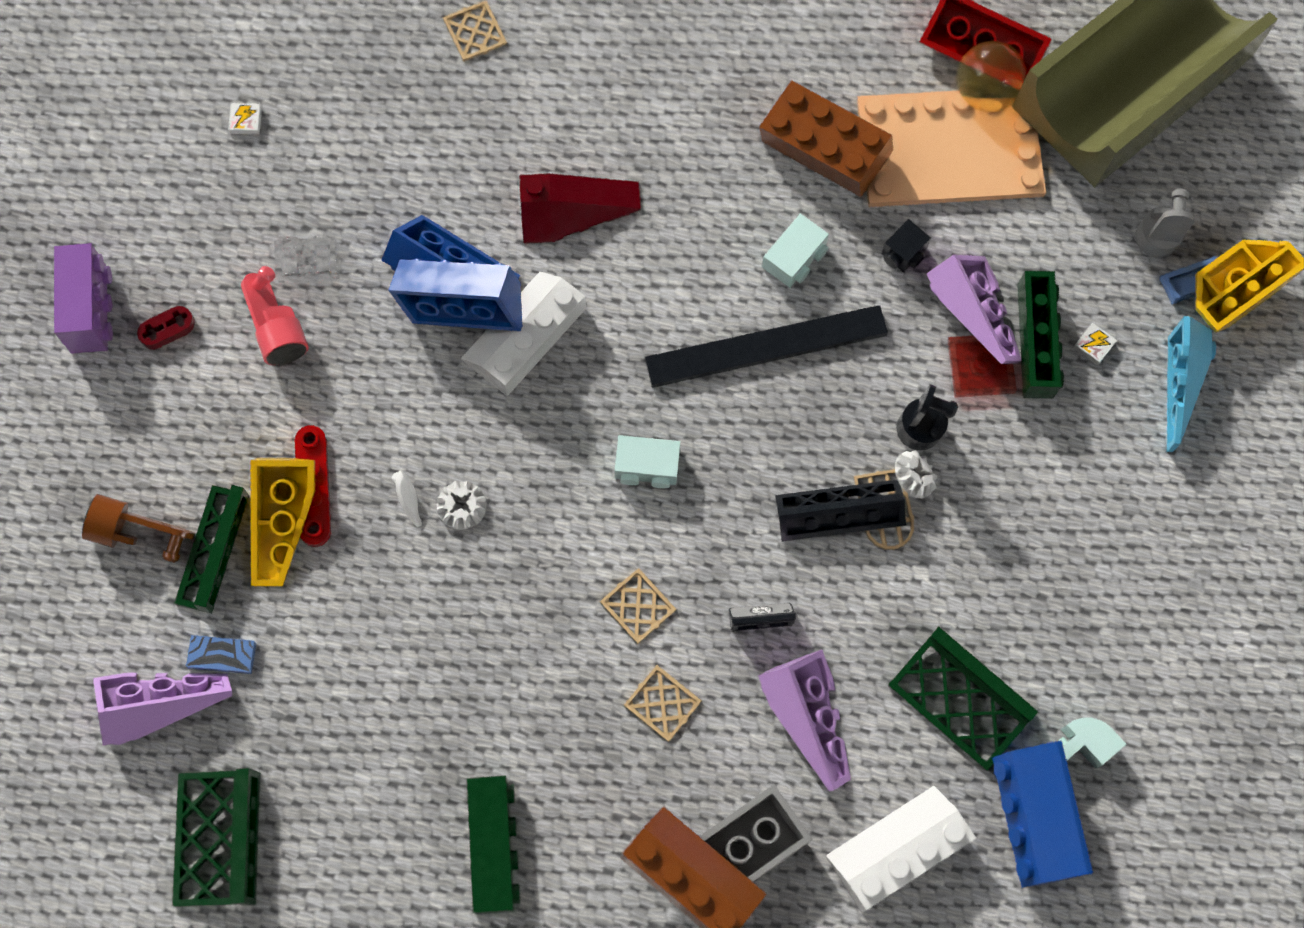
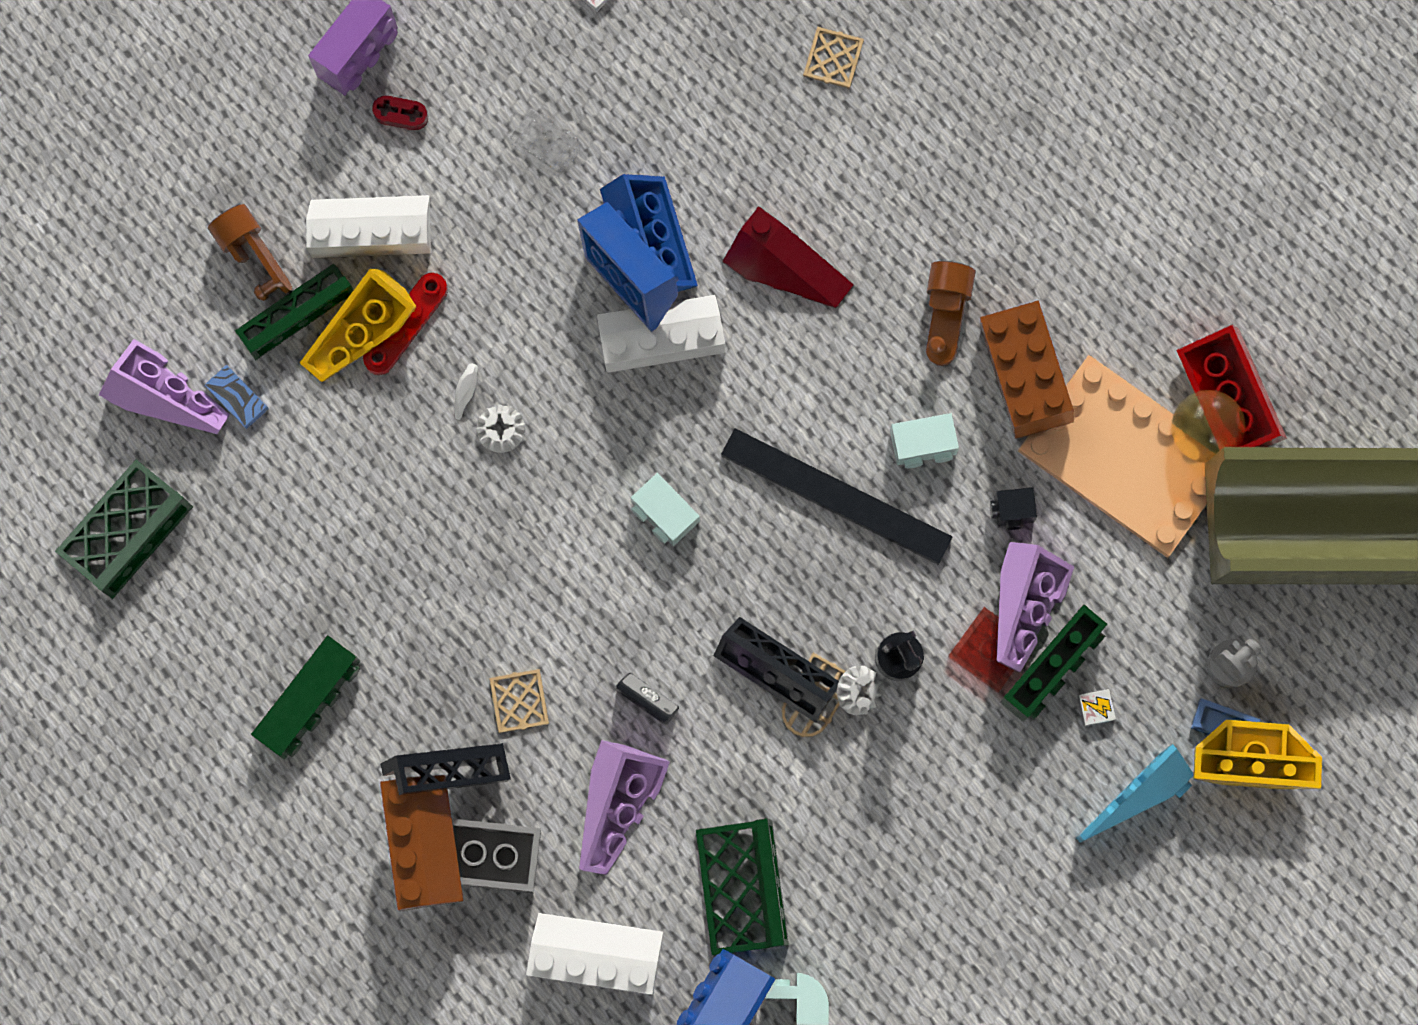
camera: 45 degrees right, 5 degrees up
(218, 433) = (368, 226): none -> white slope
(276, 326) = (477, 182): coral piece -> none
(621, 587) = (564, 589): tan window -> none
(660, 791) = (450, 761): none -> black fence
(714, 125) = (949, 288): none -> dark orange piece

